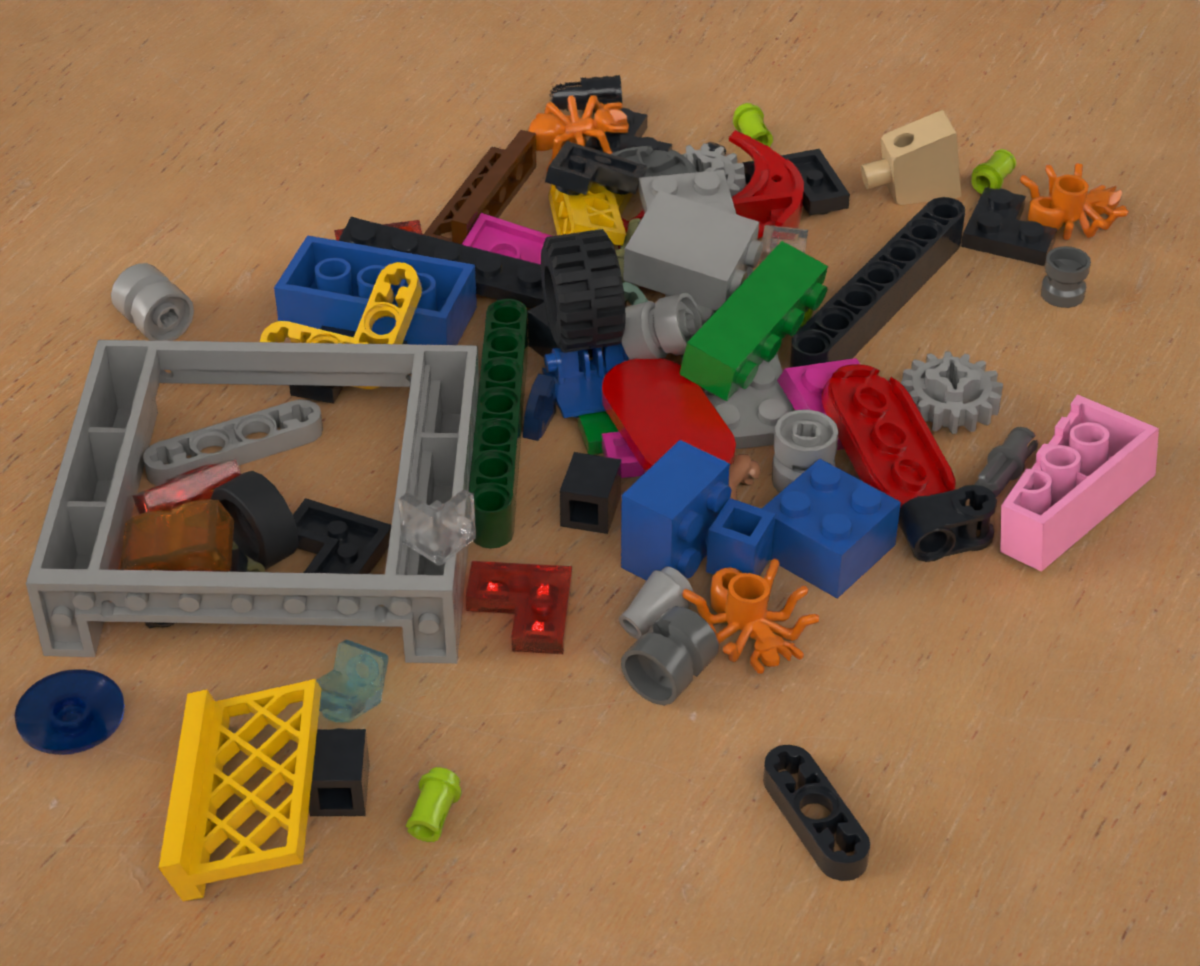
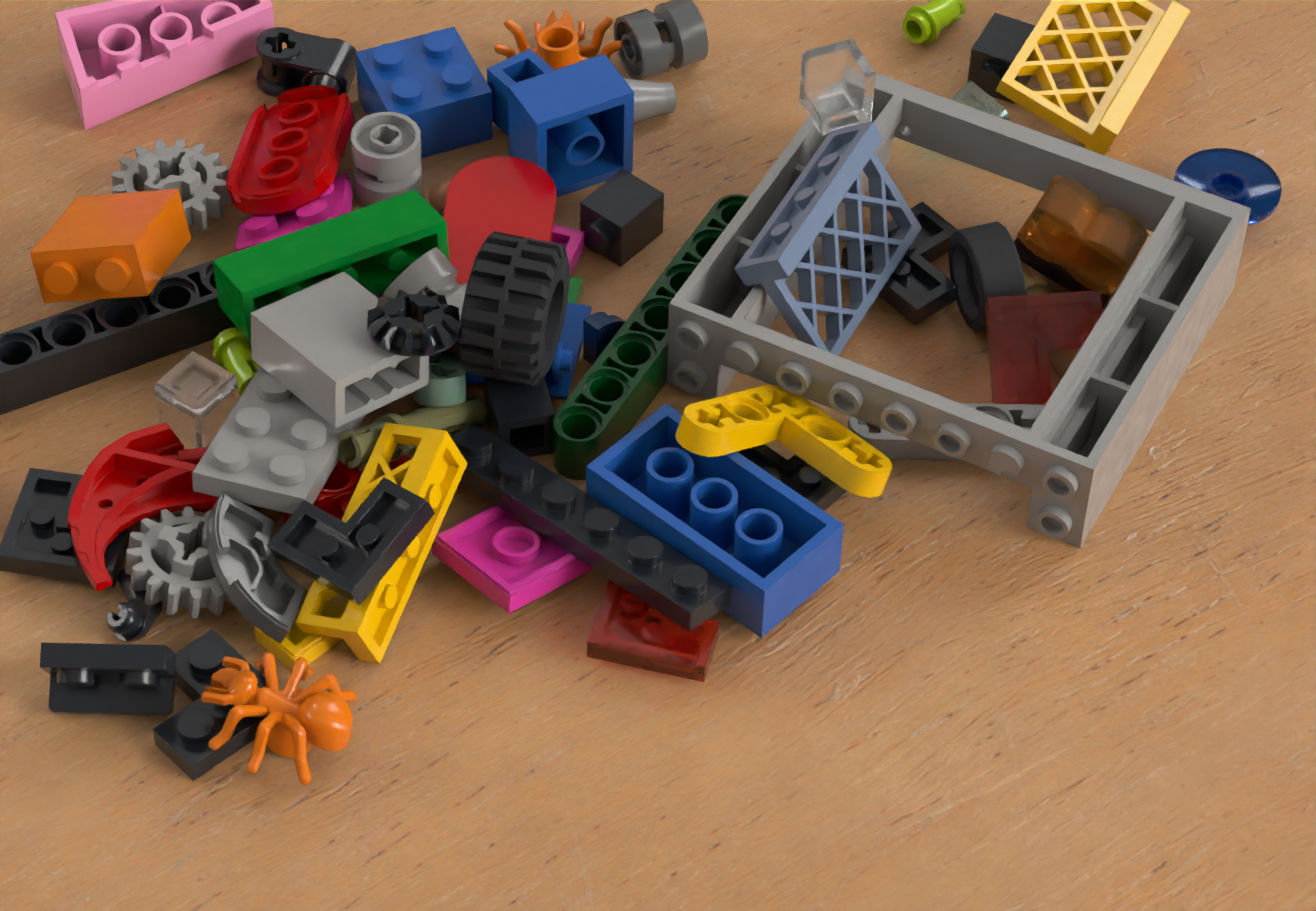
camera: 155 degrees left, 5 degrees up
(152, 303) = (987, 632): light grey wheel -> none
(386, 448) = (810, 212): none -> sand blue fence
(487, 188) = (453, 663): reddish brown fence -> none
(533, 593) = (742, 138): clear red plate -> none
(605, 88) = (198, 799): black hinge -> none
(640, 251) = (393, 328): none -> black gear
(690, 107) = (110, 678): none -> black bracket
(749, 121) = (23, 660): lime pin -> none
(931, 303) = (111, 246): none -> orange brick
(1007, 460) = (190, 107): dark grey axle -> none

